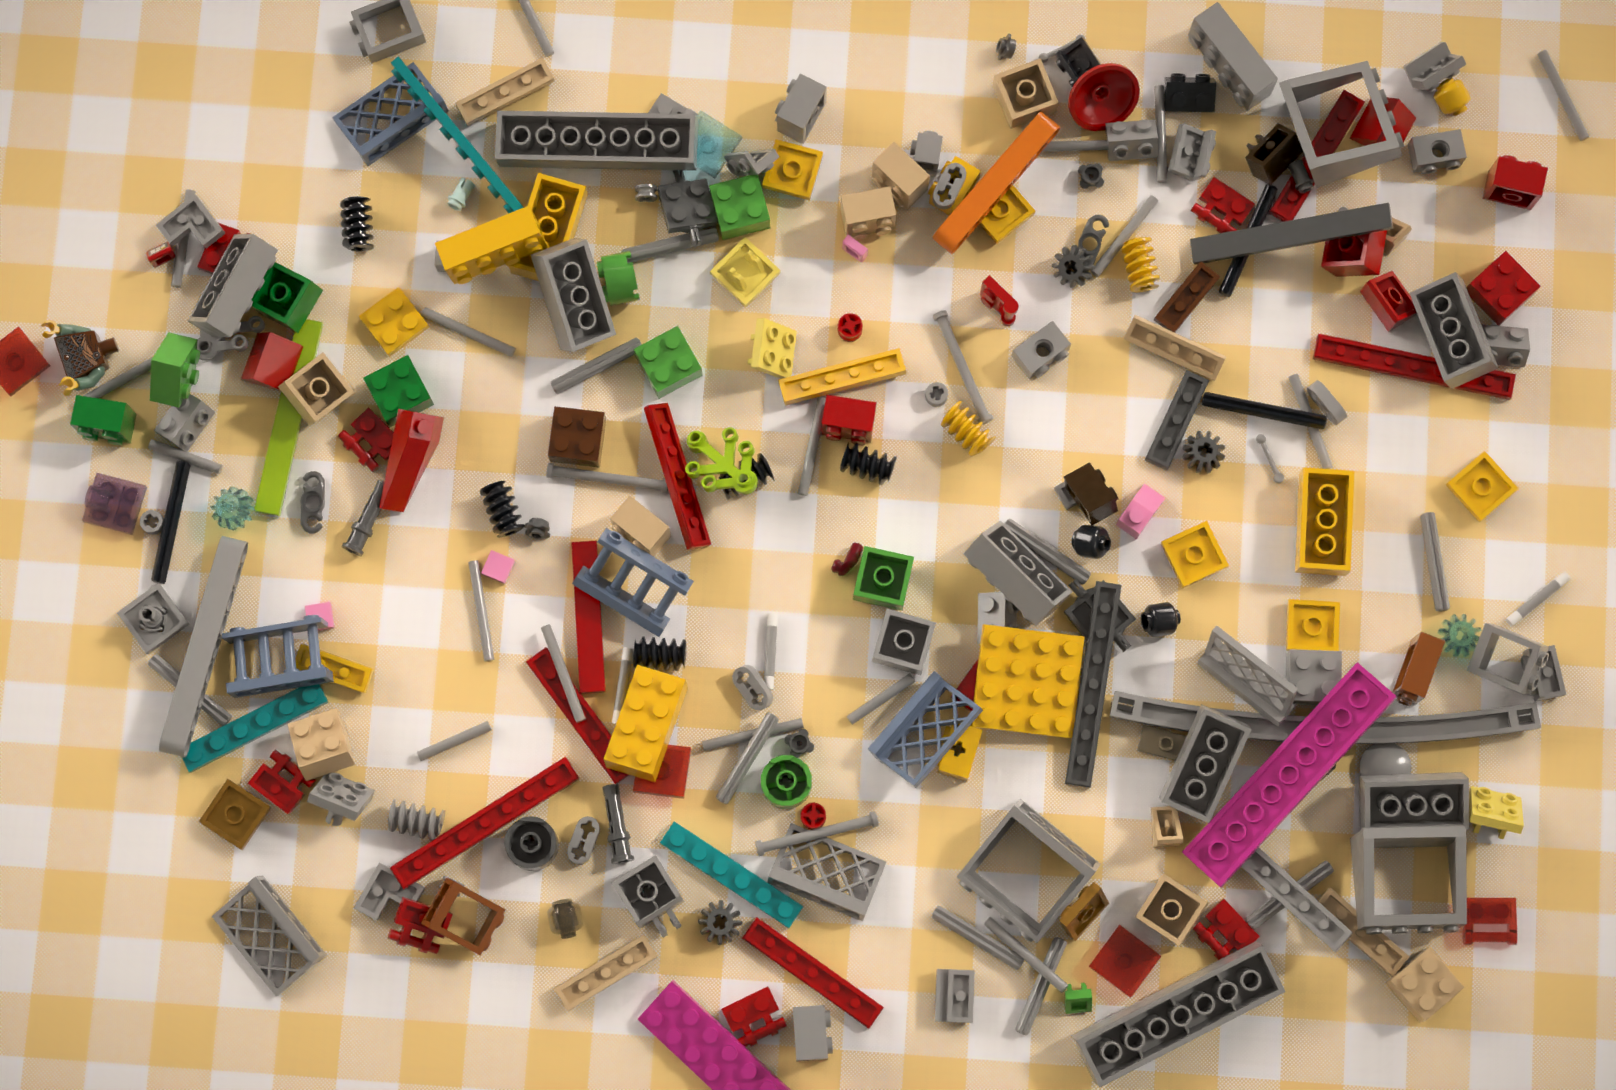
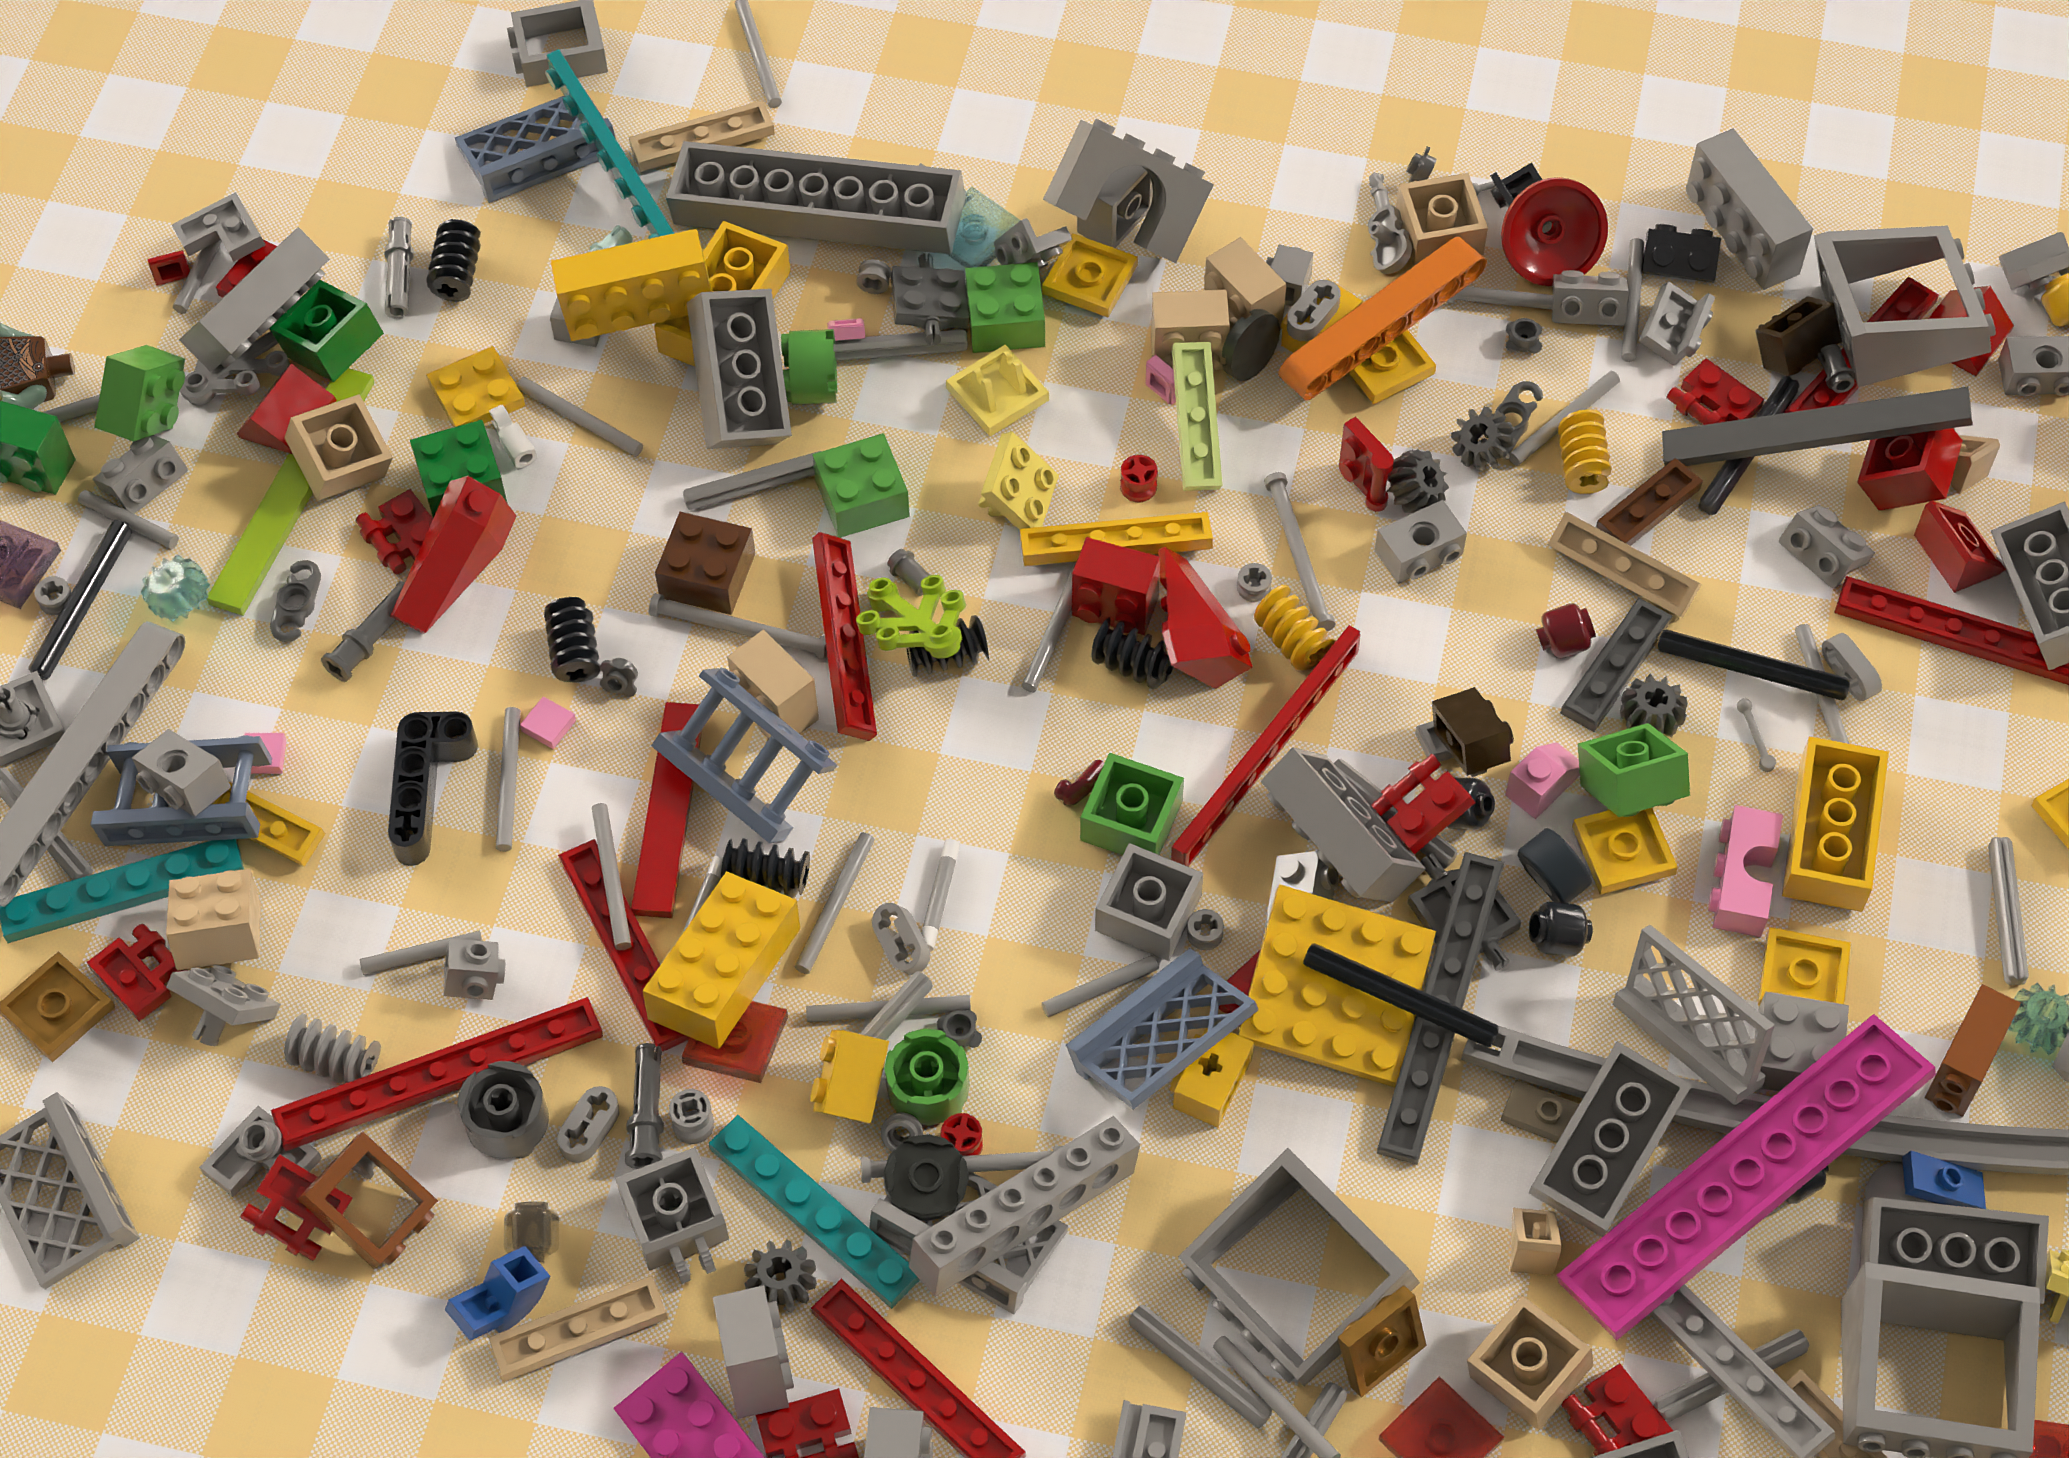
camera: 10 degrees right, 20 degrees down
(267, 644) = (180, 773): none -> light grey brick
(318, 229) = (398, 255): none -> light grey pin
(381, 888) = (253, 1134): none -> light grey plate
(428, 357) = (512, 438): none -> white bar
(428, 628) = (421, 786): none -> black beam
(491, 752) = (472, 969): none -> light grey brick
(556, 963) = (504, 1298): none -> blue brick
(635, 239) = (847, 329): none -> bright pink tile
(649, 826) = (694, 1125): none -> light grey wheel
(706, 666) = (834, 903): none -> light grey bar
(711, 420) = (910, 571): none -> flat silver pin
(715, 977) = (753, 1351): none -> light grey brick
(739, 790) = (849, 1075): none -> yellow brick
(774, 823) = (888, 1131): none -> light grey plate
(792, 97) = (1097, 154): none -> light grey arch
(797, 849) = (926, 1177): none -> pearl dark grey tile
(860, 860) = (1023, 1206): none -> light grey brick
(882, 278) = (1196, 416): none -> yellowish green plate
(910, 217) = (1250, 344): none -> pearl dark grey tile
(910, 445) = (1198, 629): none -> red wedge
(933, 646) = (1194, 935): none -> light grey bush
(962, 518) = (1266, 748): none -> red tile
(994, 116) = (1392, 243): none -> light grey piece
(1034, 307) = (1417, 481): none -> dark grey gear
(1068, 687) = (1401, 995): none -> black axle
(1070, 554) = (1430, 810): none -> red plate
(1142, 403) = (1566, 630): none -> dark red head
(1152, 578) = (1554, 866): none -> black wheel
(1195, 505) = (1634, 770): none -> bright green brick
(1268, 582) = (1741, 901): none -> bright pink arch
(1304, 311) = (1825, 545): none -> light grey bracket
(1406, 755) = (1942, 1181): none -> blue plate

